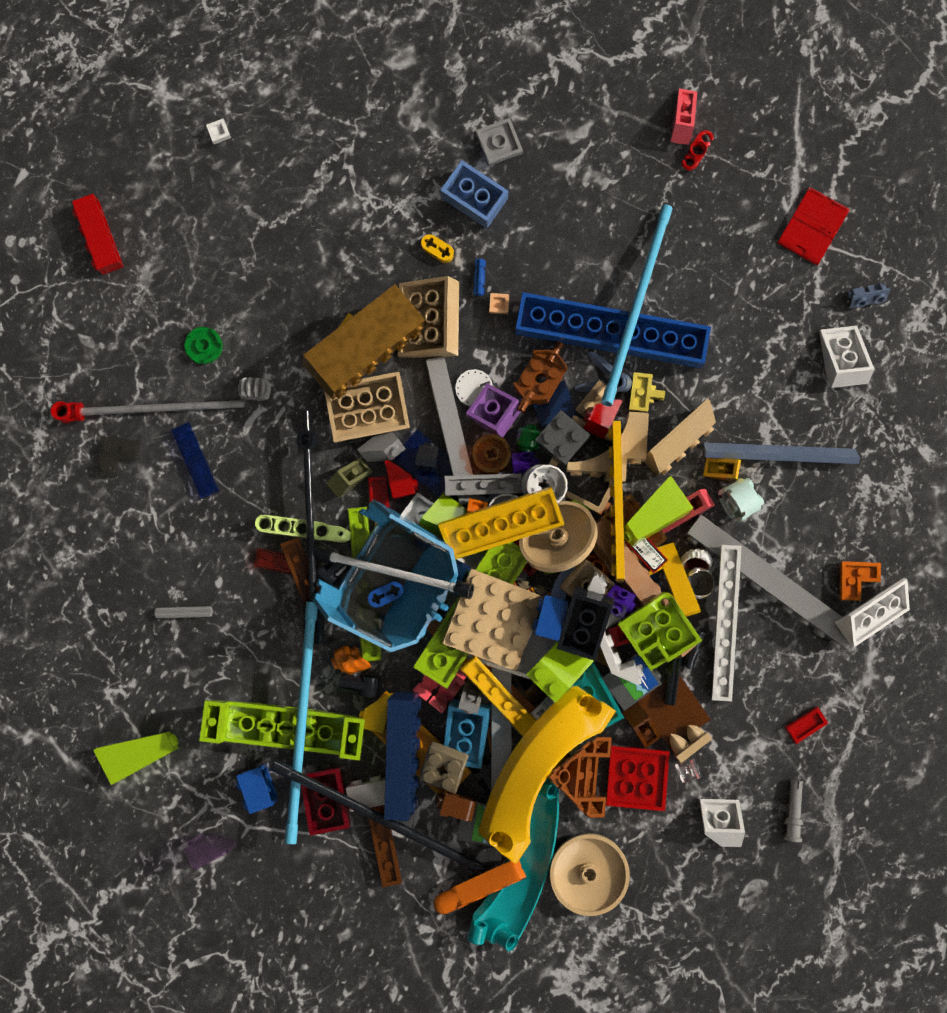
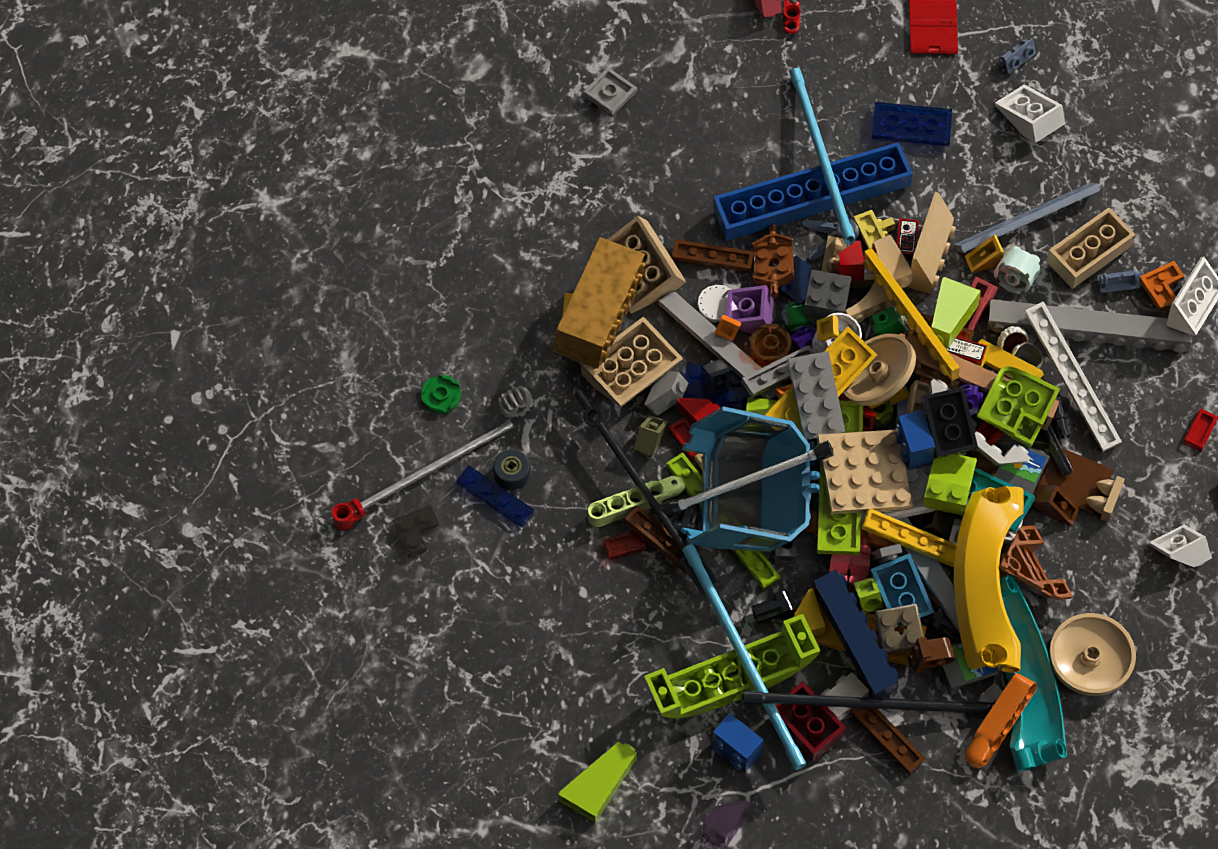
camera: 30 degrees left, 20 degrees down
(97, 234) = (282, 347): red brick -> none
(183, 612) = (566, 633): light grey axle -> none
(218, 131) = (344, 207): white plate -> none
(225, 450) = (511, 477): none -> black wheel
(349, 660) = (752, 589): orange head -> none
(384, 589) = (746, 507): blue beam -> none
(436, 723) = (868, 595): none -> lime brick
(439, 244) = (609, 205): yellow beam -> none
(464, 419) = (727, 328): none -> orange plate
(474, 194) = (616, 142): medium blue brick -> none
(479, 277) = (663, 209): blue axle -> none
(490, 532) = (816, 395): none -> light grey plate
(495, 342) = (712, 255): none -> reddish brown plate
(499, 303) = (695, 222): light nougat plate -> none
(534, 479) = (827, 328): none -> yellow plate
(596, 493) = (888, 322): none -> green brick
(637, 778) = (1081, 552): red plate -> none
(668, 415) = (907, 236): none -> tile
(736, 311) = (912, 123): none -> clear blue plate
(816, 512) = (1090, 248): none -> tan brick
(822, 554) = (1119, 281): none -> sand blue hinge

